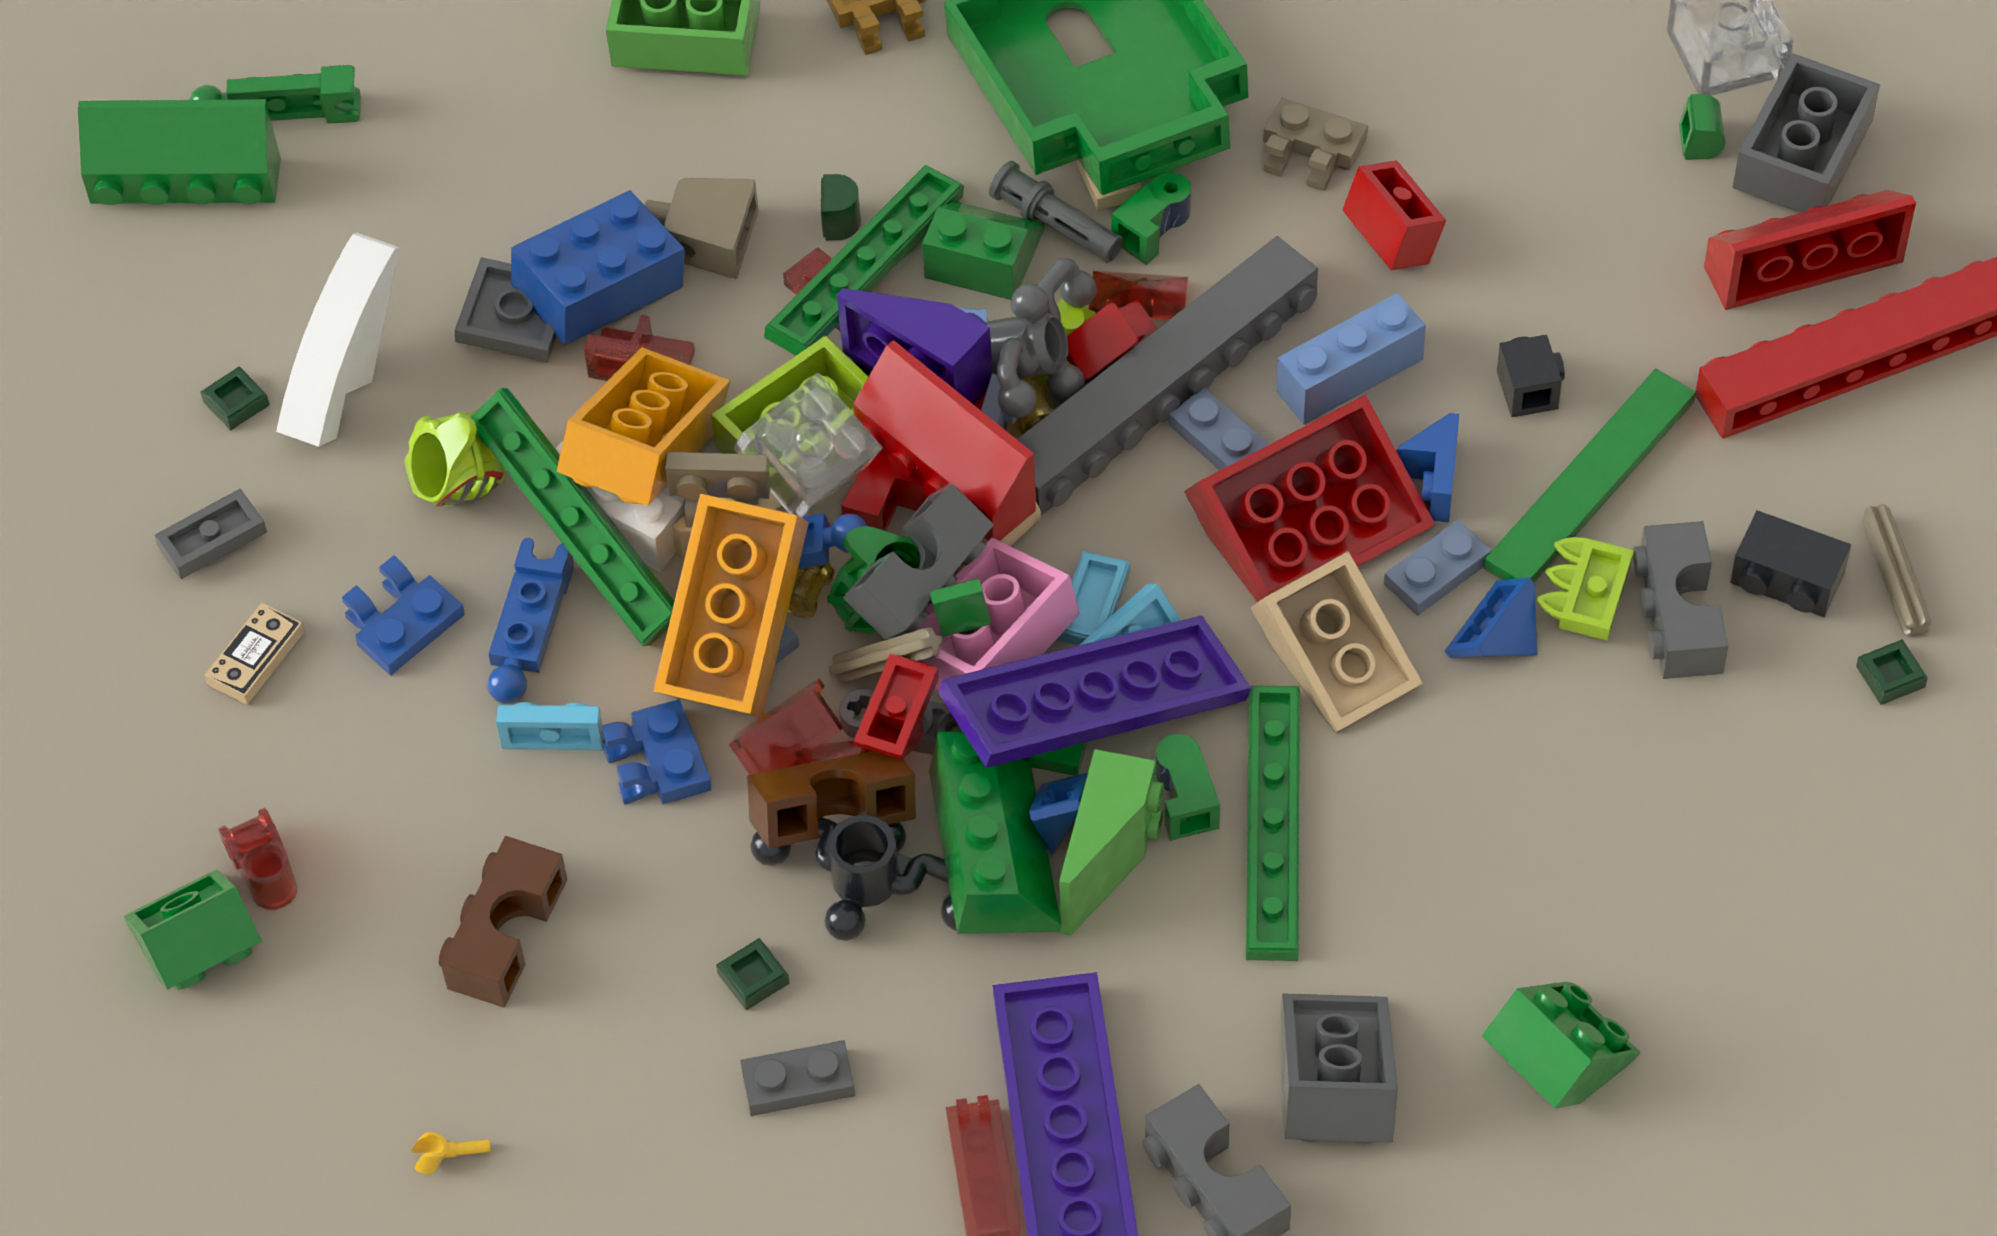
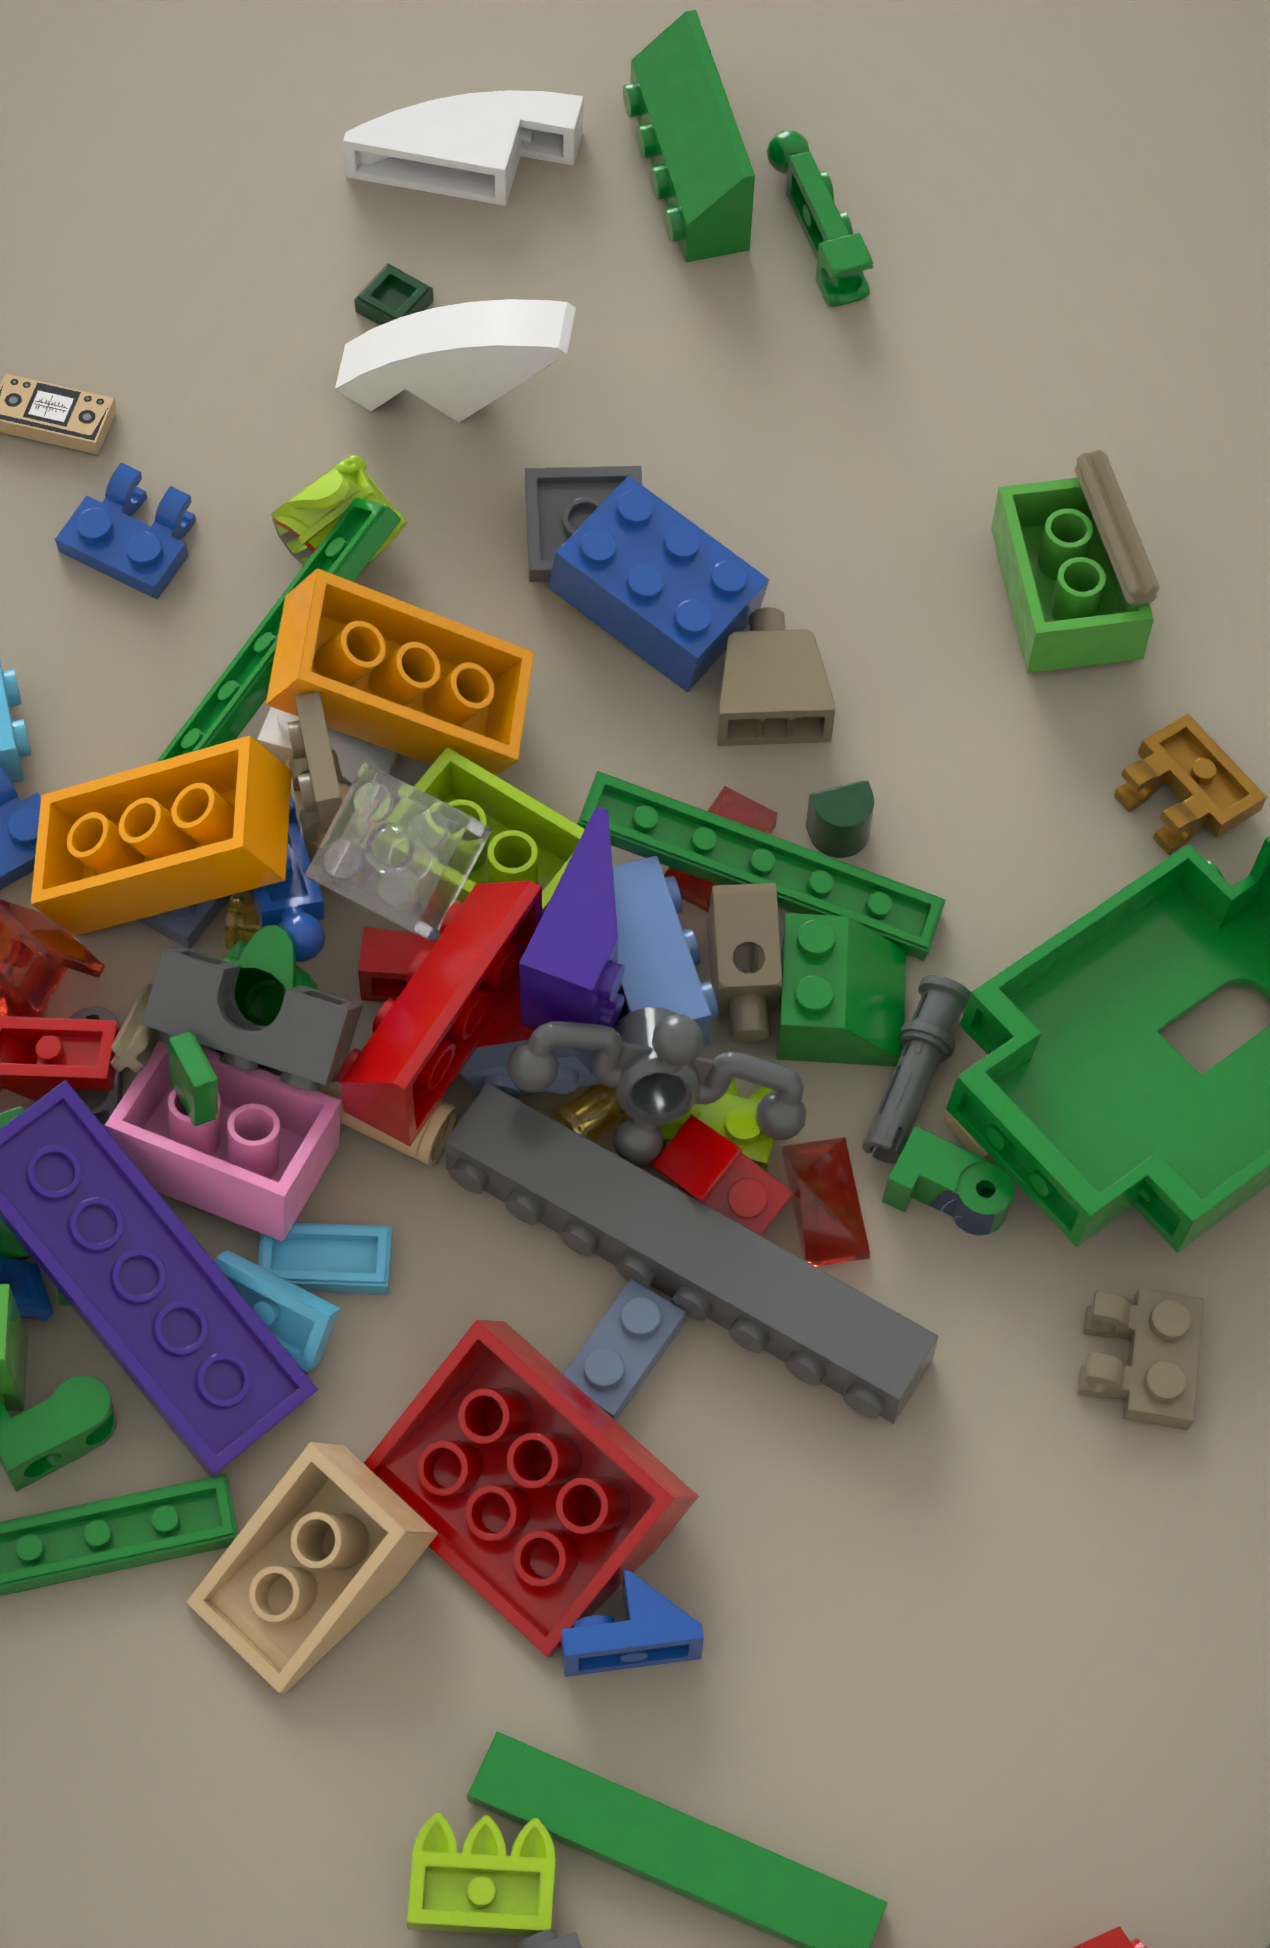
camera: 70 degrees right, 5 degrees up
(106, 308) = (466, 142): none -> white slope
(210, 533) = (195, 326): dark grey plate -> none
(527, 619) = (145, 654): blue plate -> none
(615, 347) = (563, 672): clear red panel -> none
(946, 274) = (745, 956): none -> dark tan torso
(1350, 358) = (777, 1481): medium blue brick -> none
(1394, 215) = (1030, 1482): red brick -> none
(1437, 567) = (477, 1674): sand blue plate -> none
(1500, 624) = (393, 1774): blue slope -> none
(1530, 375) = (822, 1726): black brick -> none

